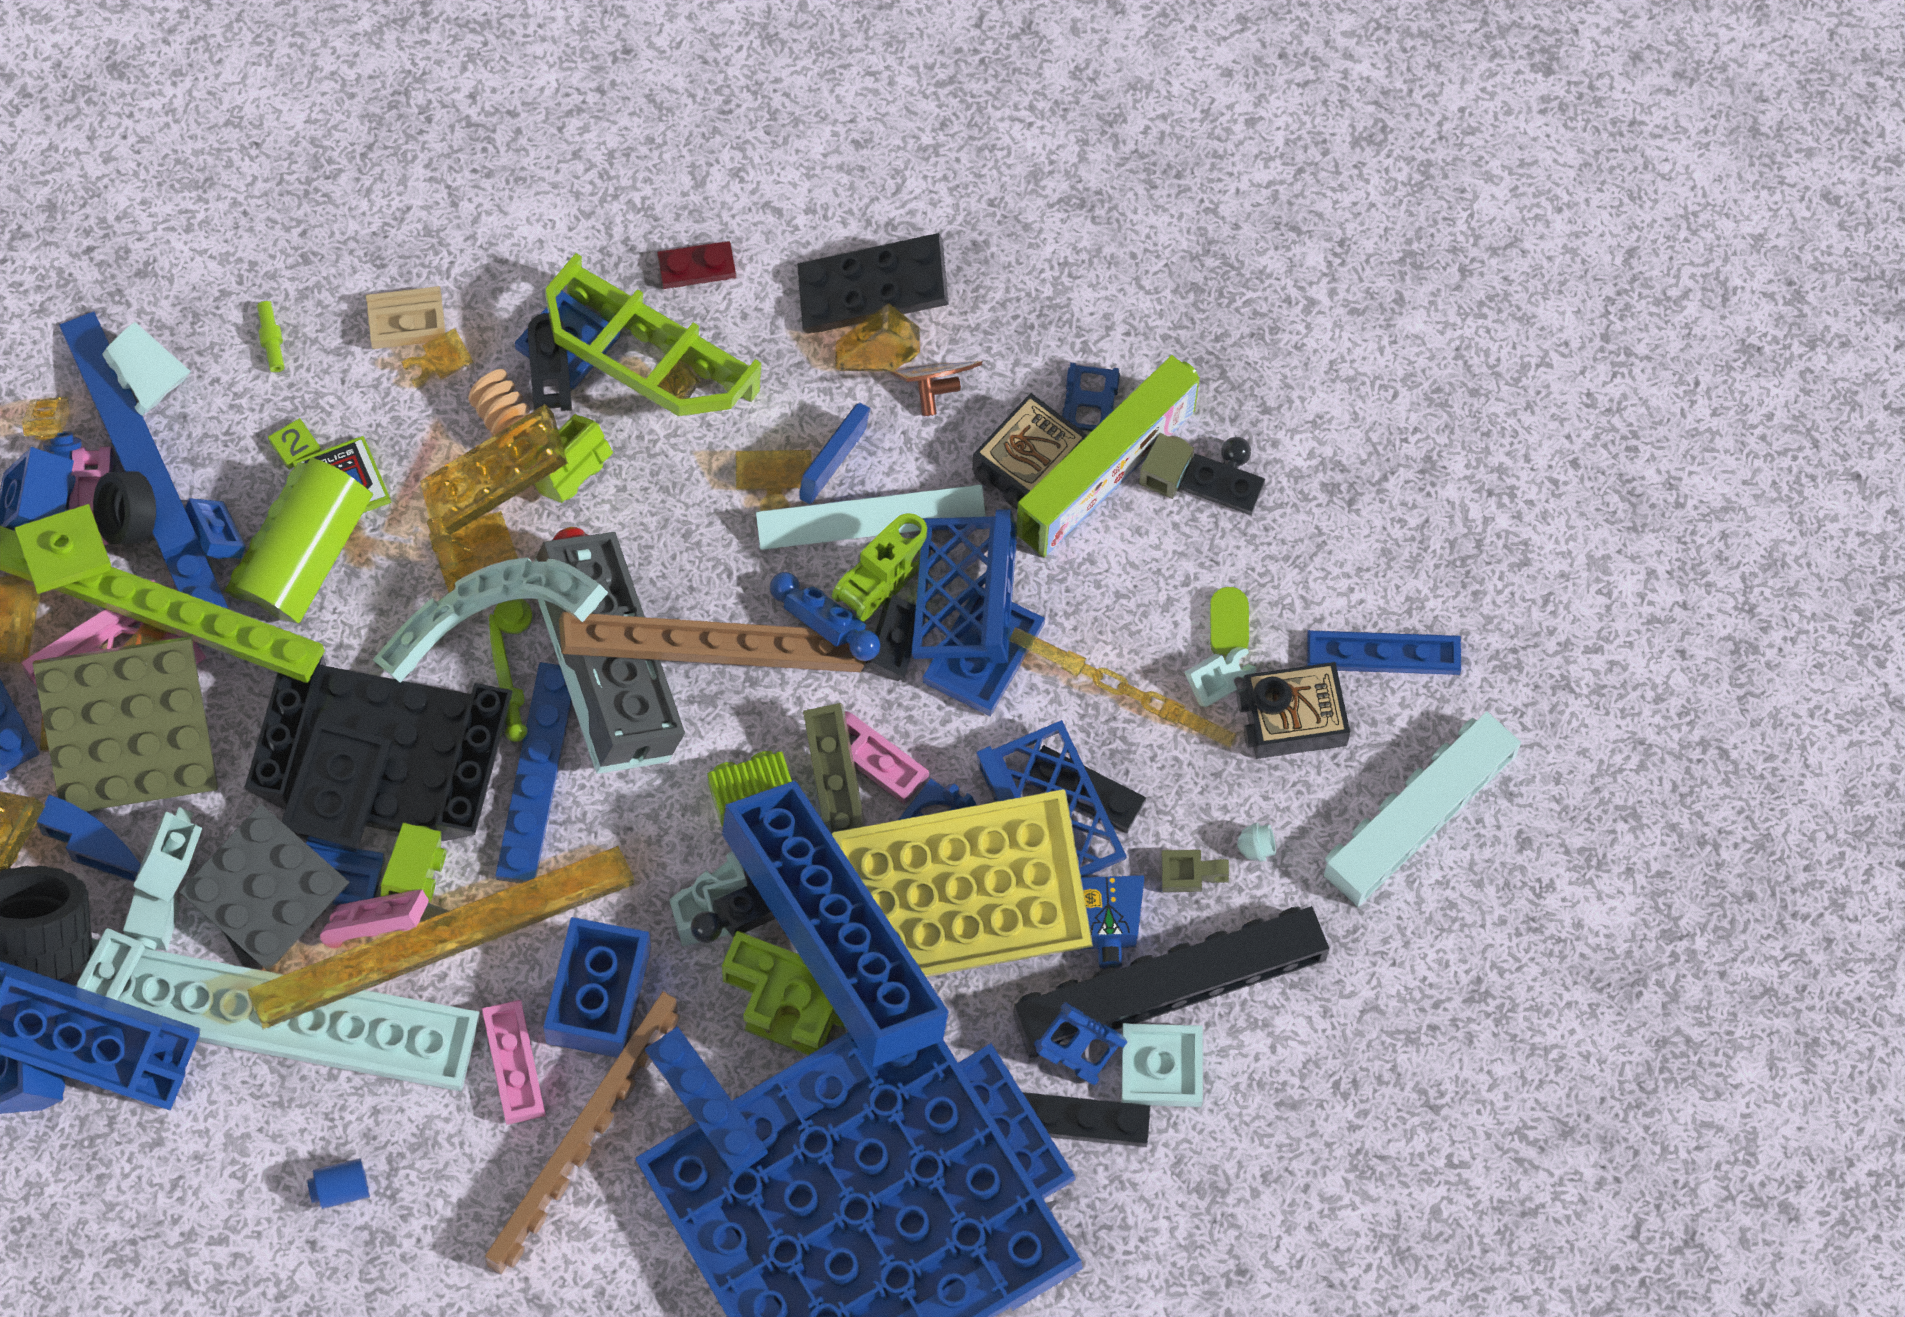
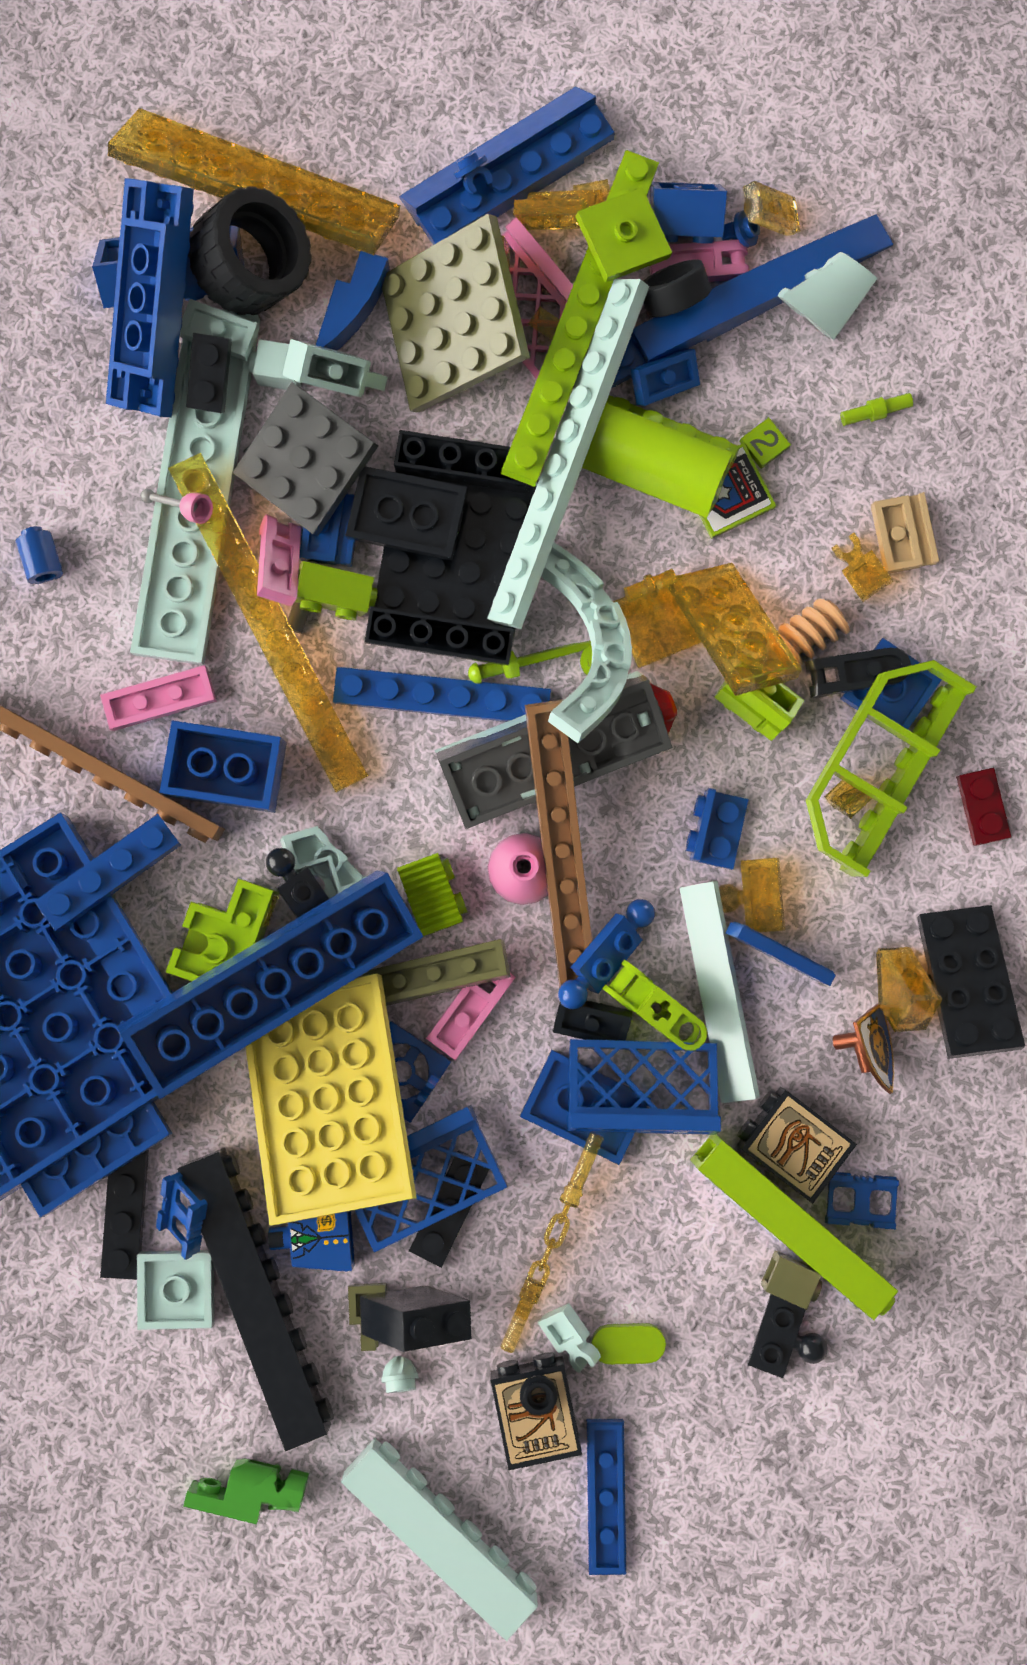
camera: 90 degrees right, 20 degrees up
(156, 981) = (208, 372): none -> black plate
(309, 991) = (193, 506): none -> bright pink hinge
(340, 636) = (568, 452): none -> light aqua plate
(701, 510) = (717, 829): none -> blue bracket
(731, 708) = (504, 875): none -> bright pink piece
(1190, 805) = (415, 1318): none -> black brick
(1373, 992) = (248, 1489): none -> bright green plate

